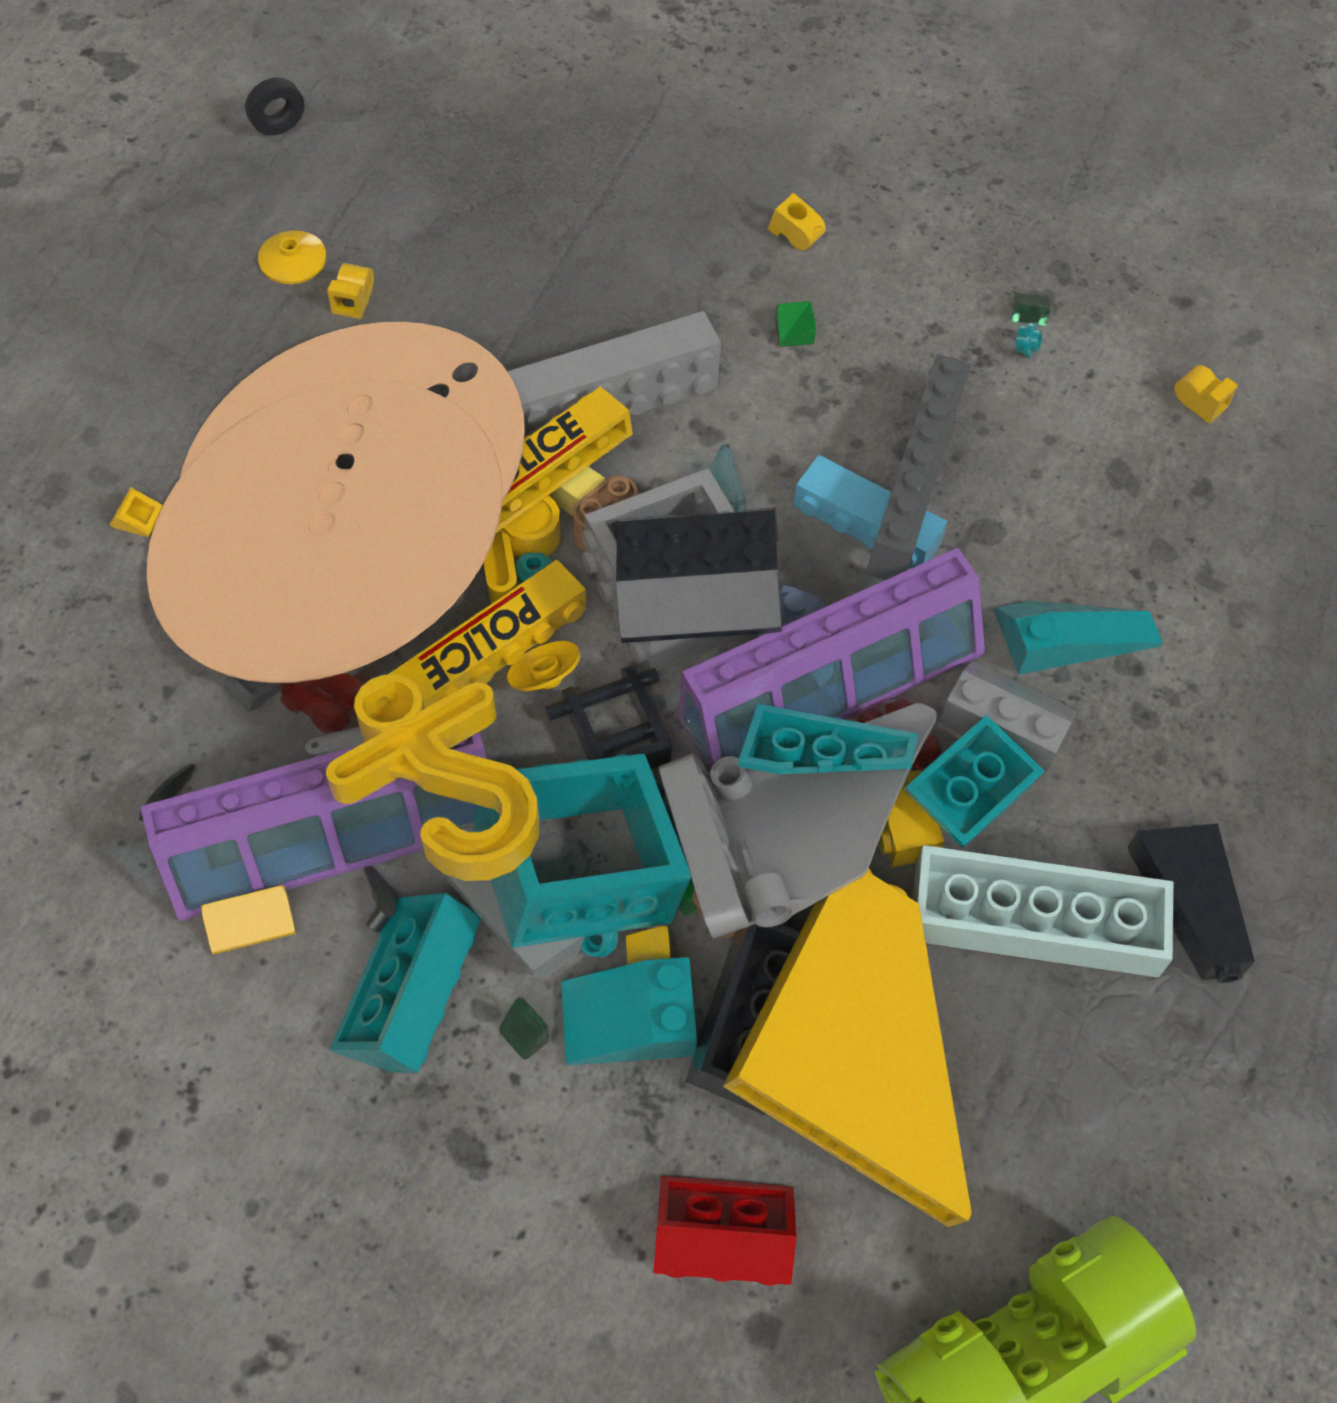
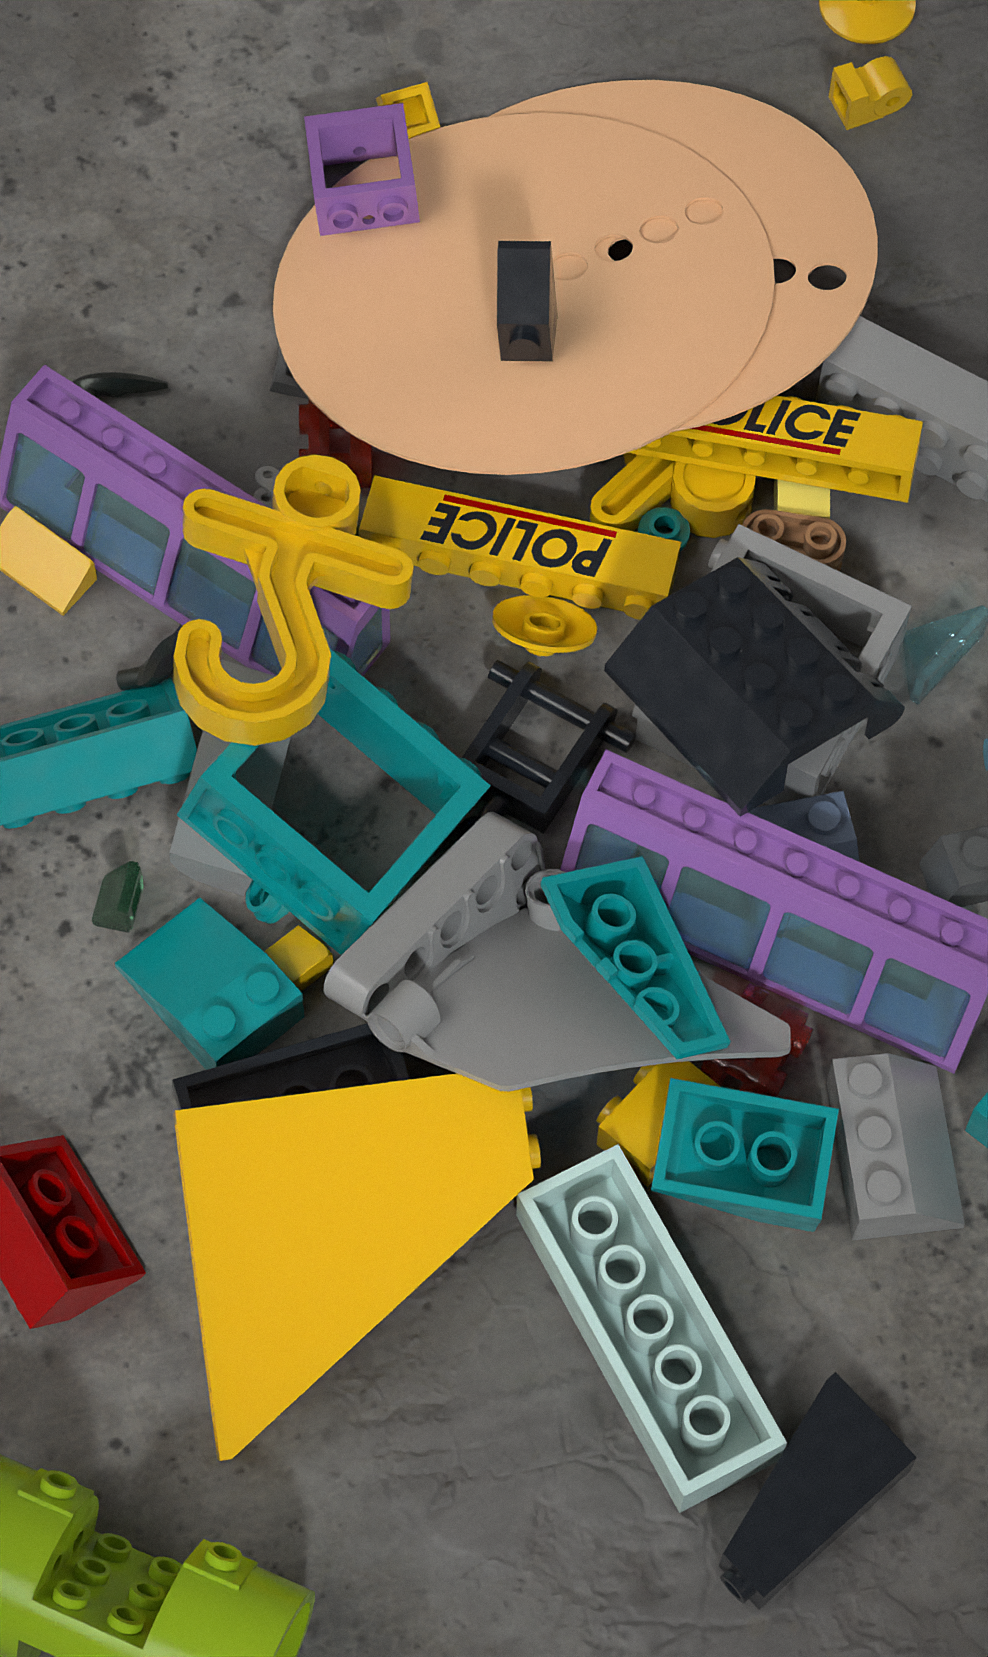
camera: 55 degrees right, 5 degrees up
(134, 542) = (358, 137): none -> medium lavender window
(350, 517) = (526, 301): none -> black slope

